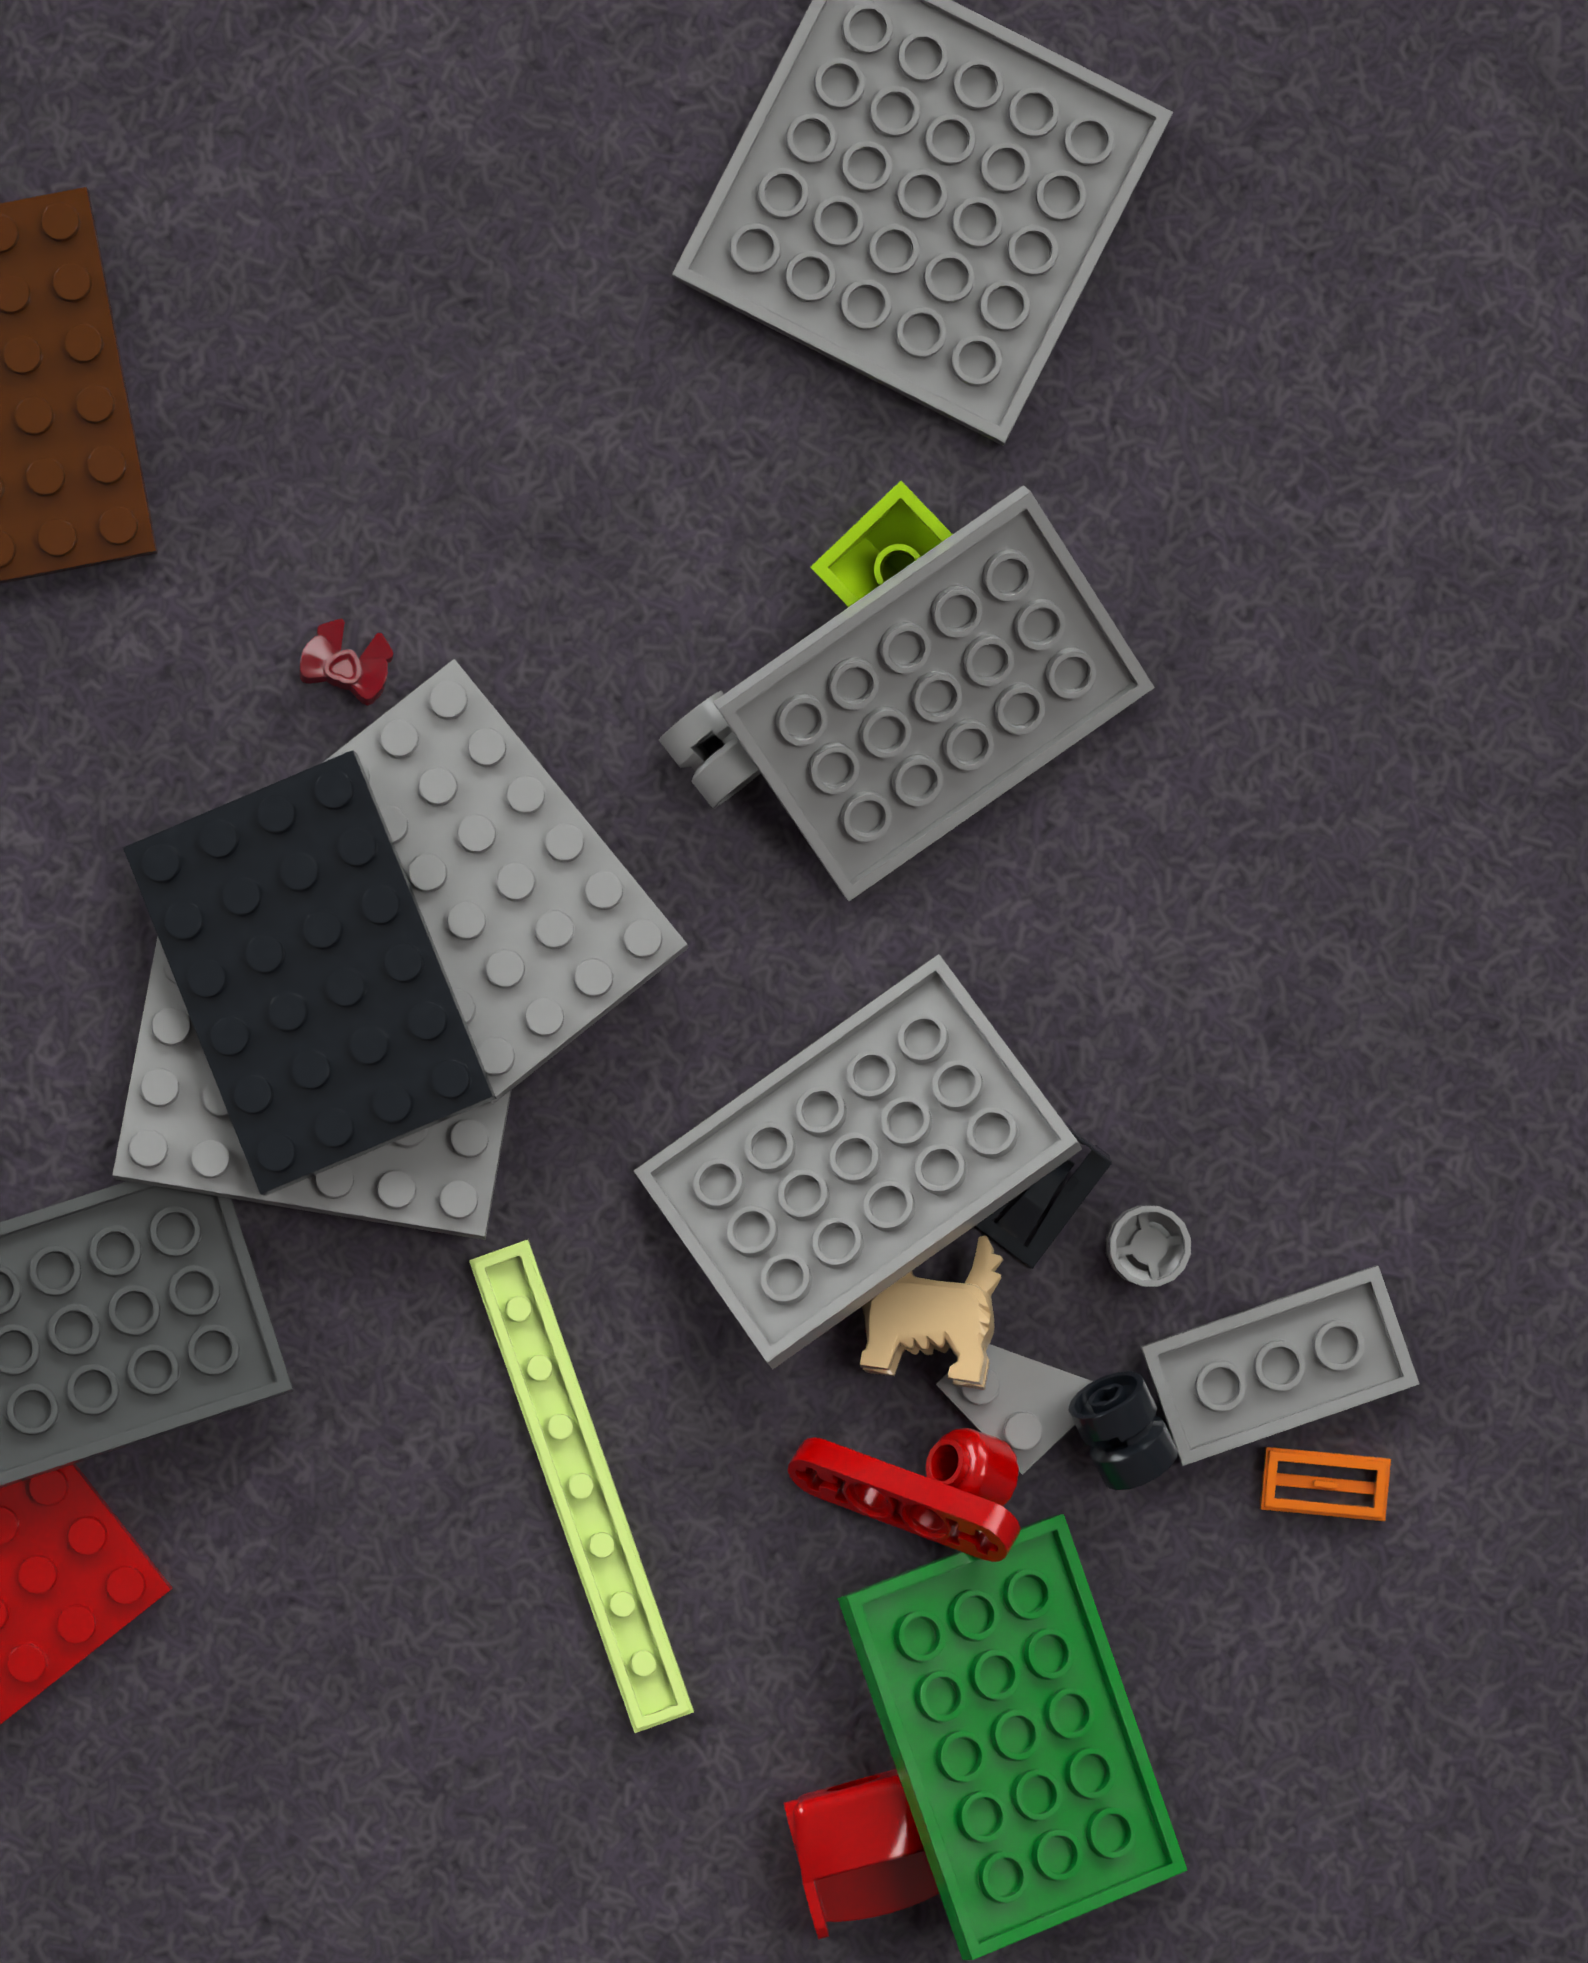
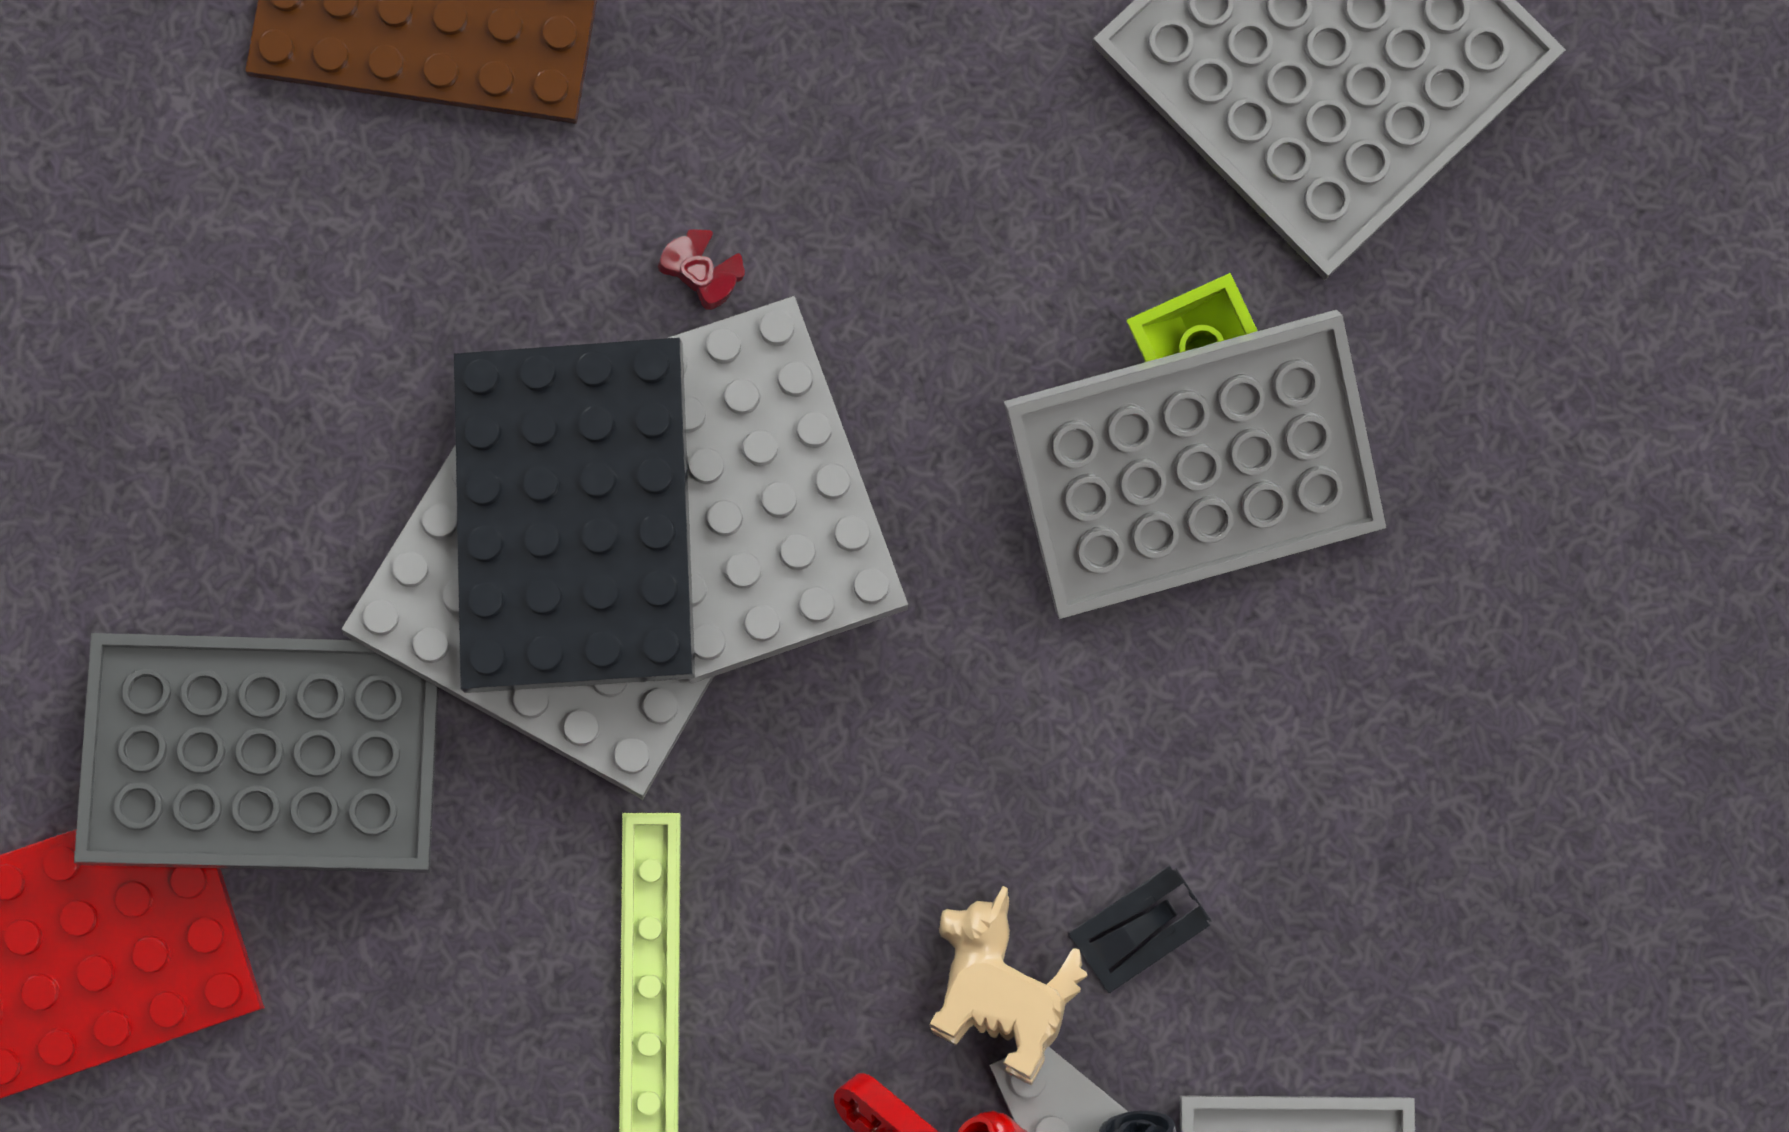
camera: 20 degrees right, 5 degrees down
(716, 775) = (994, 468): light grey wheel -> none
(857, 1161) = (989, 845): light grey plate -> none
(1148, 1246) = (1218, 1009): light grey wheel -> none

